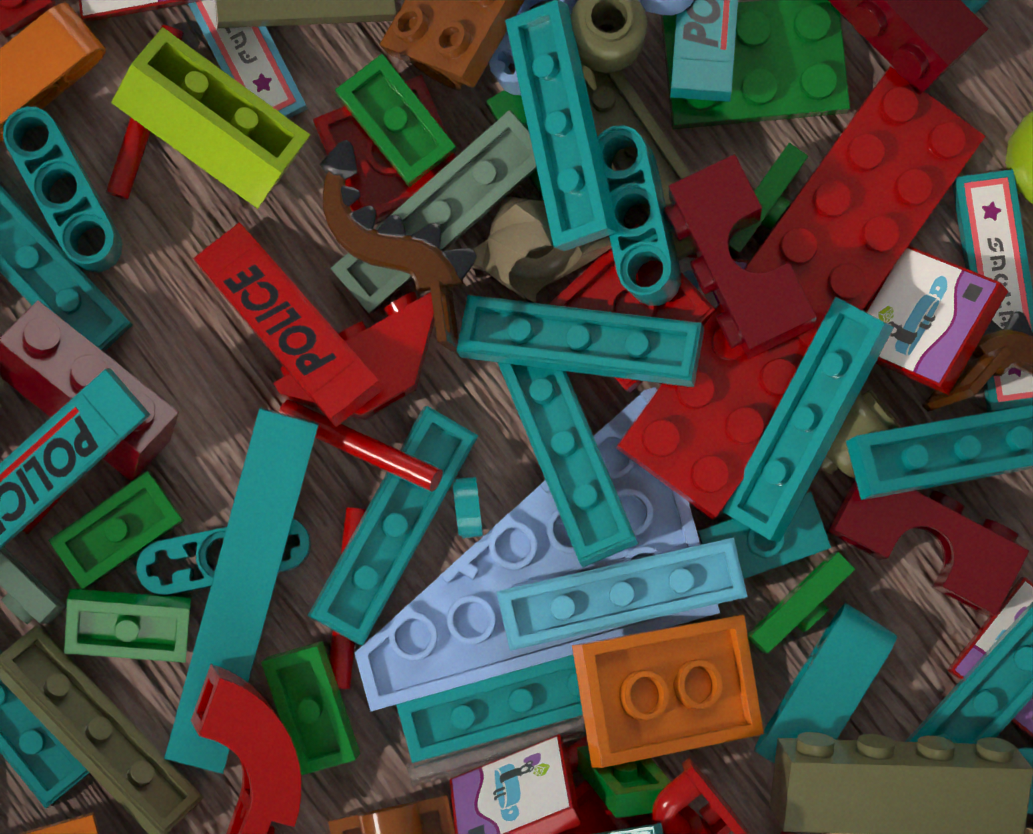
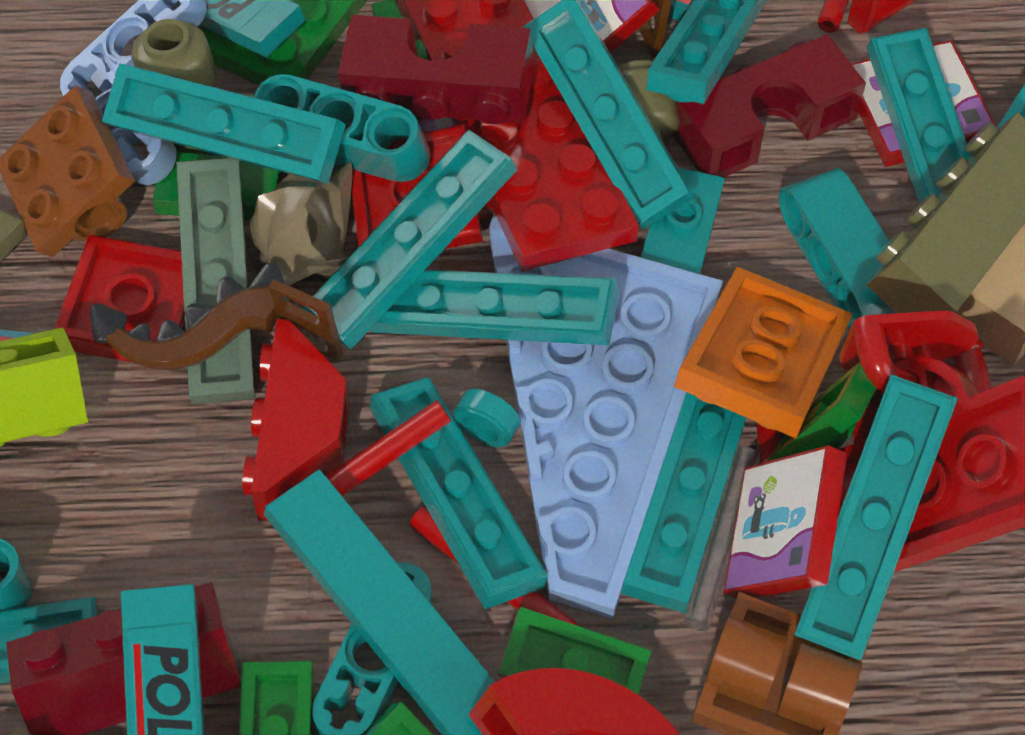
camera: 50 degrees left, 25 degrees down
(288, 324) = (209, 447): red tile -> none
(395, 120) = (109, 262): green plate -> none
(621, 594) = (652, 341): medium azure tile -> none
(802, 605) = (756, 218): green plate -> none

